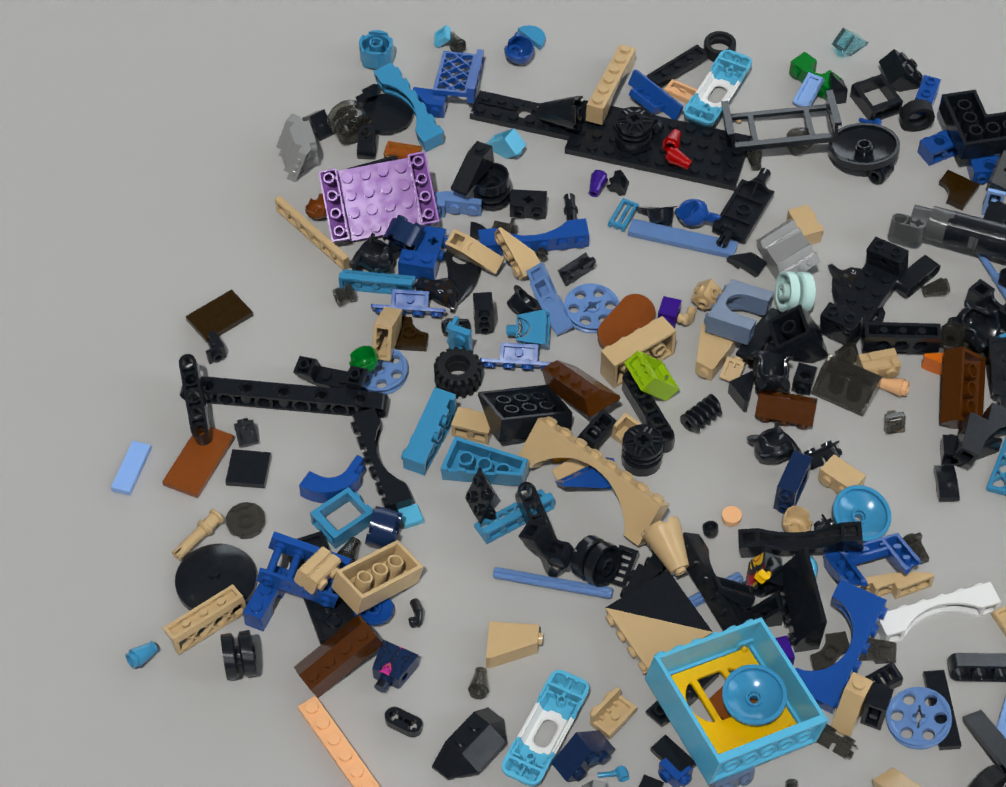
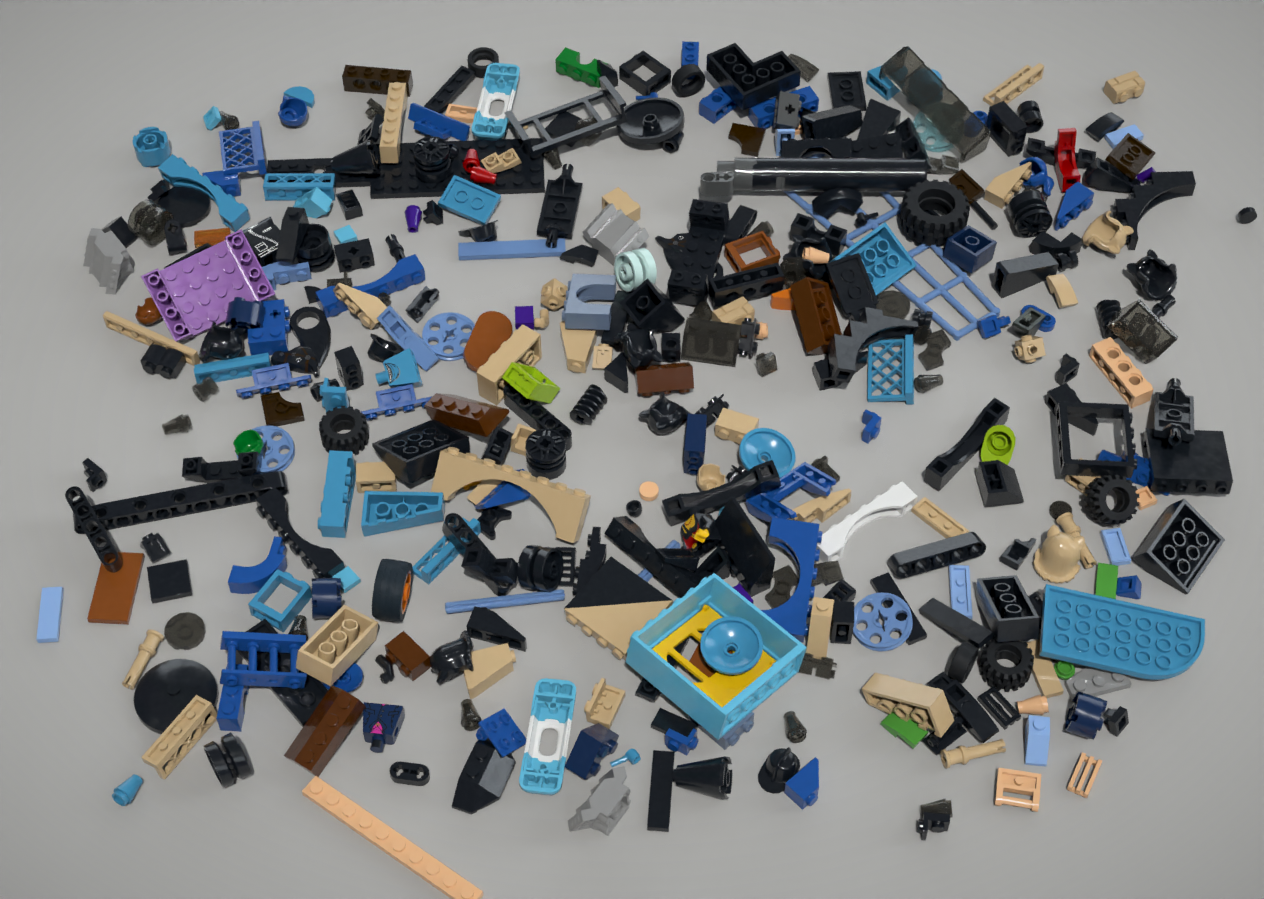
camera: 20 degrees left, 0 degrees up
(219, 315) = (85, 442): dark brown tile -> none
(307, 322) = (177, 425): none -> clear smoke cone
(315, 257) = (163, 361): none -> black brick
(317, 570) = (279, 655): tan brick -> none
(386, 332) = (261, 412): tan slope -> none
(441, 608) = (407, 656): none -> reddish brown brick
(444, 167) = (263, 240): none -> black piece
(446, 539) = (392, 589): none -> black wheel
(473, 251) = (318, 313): tan slope -> none
(480, 497) = (409, 540): black hinge -> none
(480, 623) = (452, 658): none -> black hair
(491, 126) = (293, 190): none -> dark azure fence
(502, 710) = (501, 732): none -> blue hinge
(527, 182) = (345, 234): none -> medium azure tile
(528, 603) = (490, 627): none -> black slope
(541, 156) = (351, 207): none -> black slope
(567, 498) = (491, 518): none -> black piece
(585, 89) = (371, 131): none -> black plate
(597, 68) = (374, 109): none -> clear smoke tile
(608, 37) = (374, 79): none -> dark brown brick
(617, 225) = (446, 252): dark azure tile -> none
(657, 179) = (469, 200): none -> dark azure plate
(668, 544) = (602, 532): tan cone -> none
(694, 213) = (516, 221): blue hair -> none
(695, 150) = (504, 161): none -> tan slope
(775, 128) = (563, 124): none -> black tile
(808, 90) = (581, 82): light blue tile -> none
(848, 42) = (601, 29): clear light blue slope -> none
(889, 384) = (750, 329): none -> black hinge
(901, 71) = (659, 44): black slope -> none
(916, 296) = (749, 243): none -> dark orange window
(947, 483) = (832, 405): black slope -> none
(980, 517) = (872, 426): none -> blue bracket
(982, 327) = (815, 255): none -> light nougat cone

